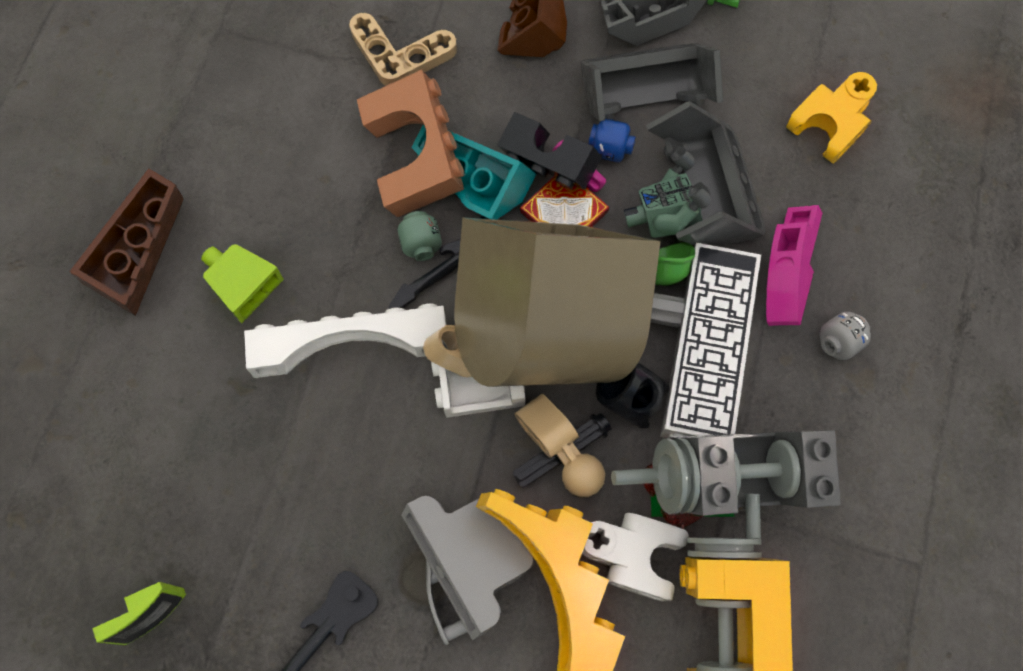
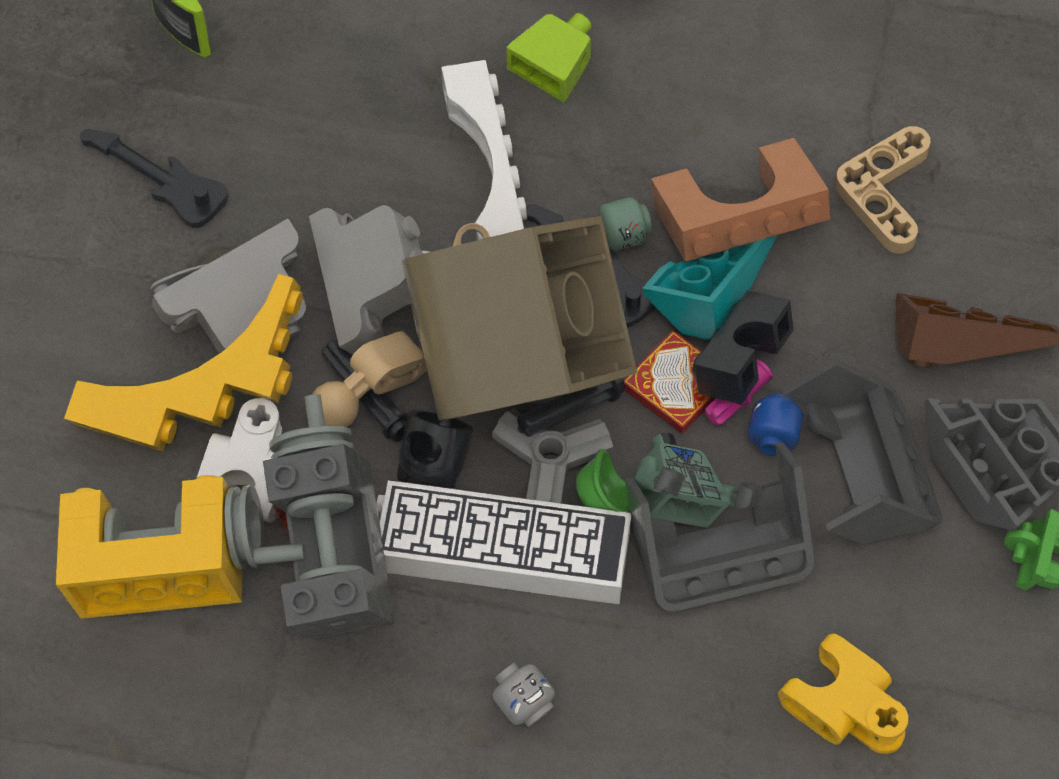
camera: 85 degrees right, 10 degrees down
(453, 440) = (364, 269): none -> light grey brick
(790, 265) = (602, 624): dark pink slope -> none

